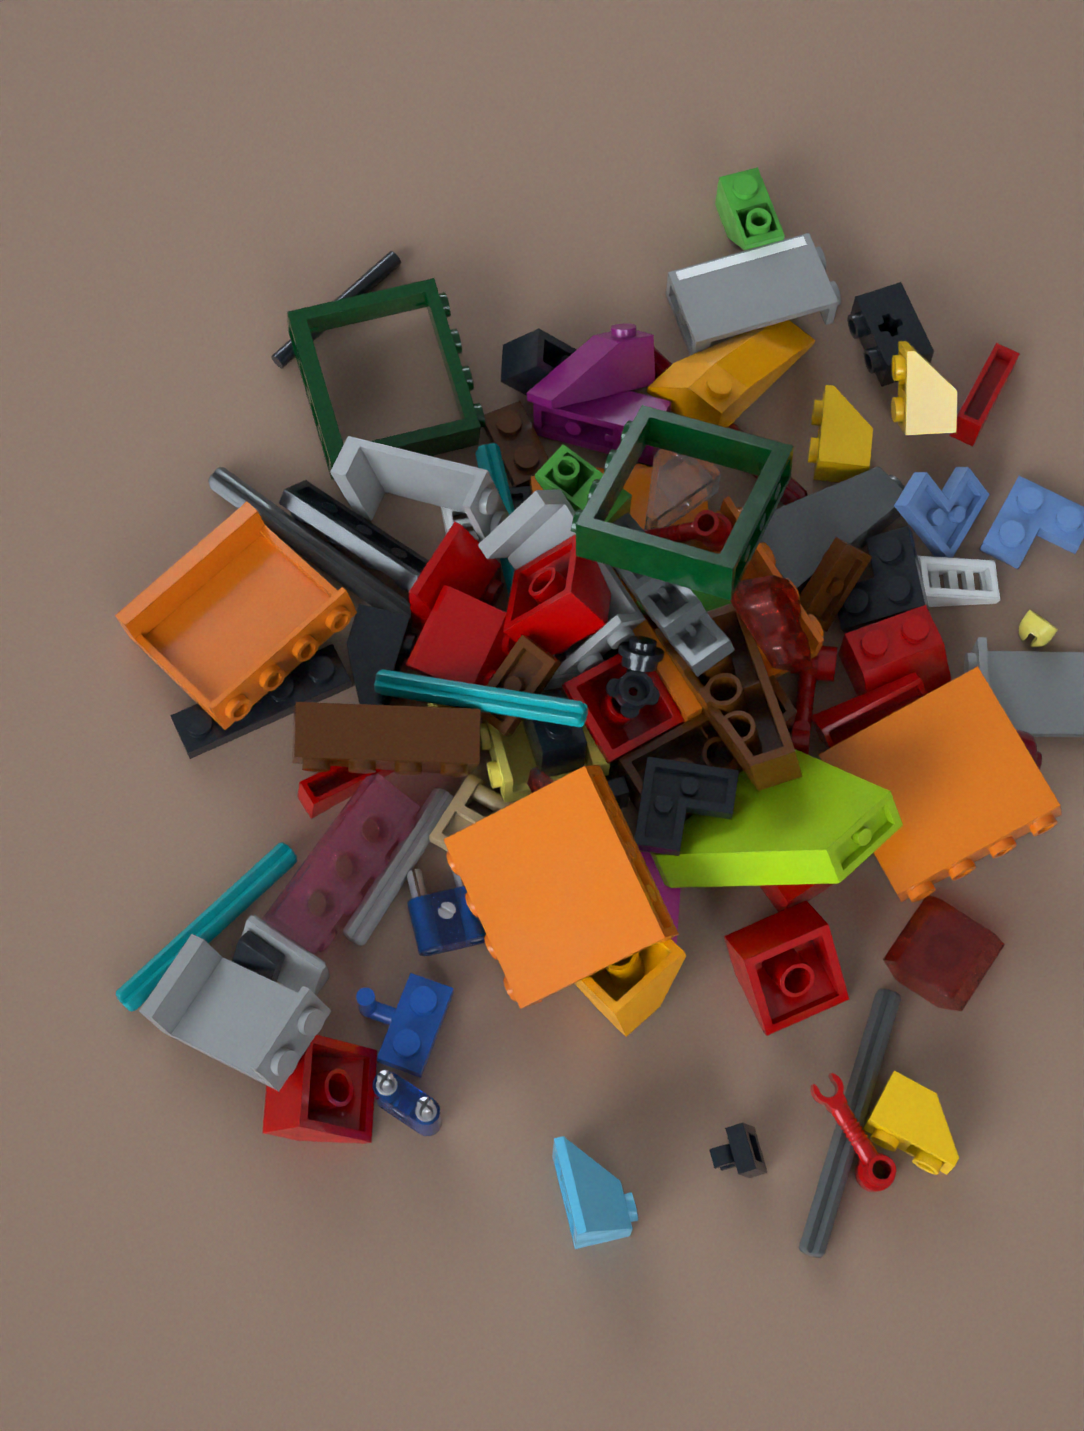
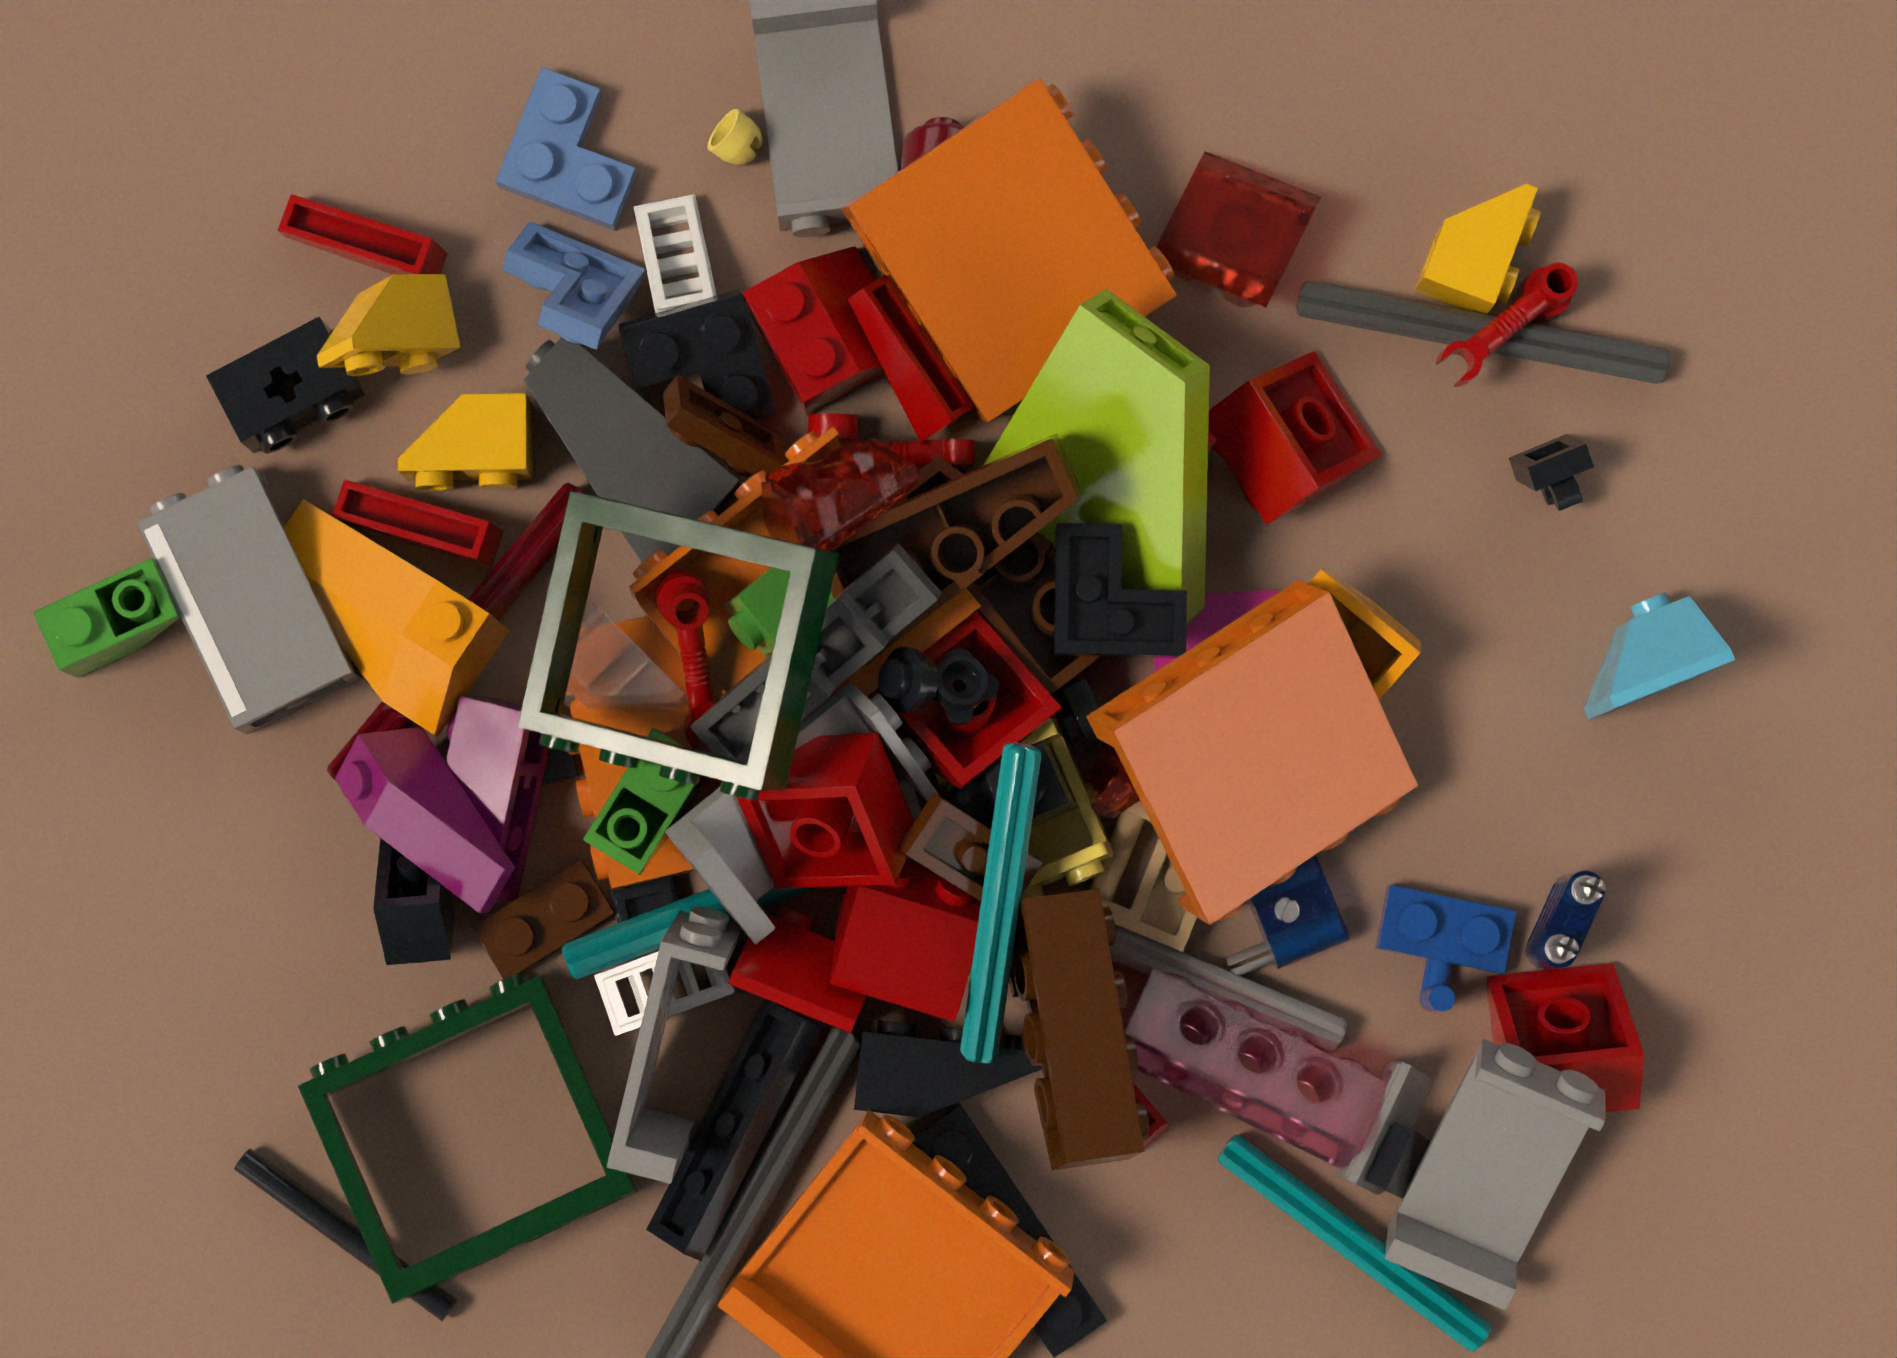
camera: 100 degrees left, 15 degrees up
(792, 399) = (418, 523): none -> red piece

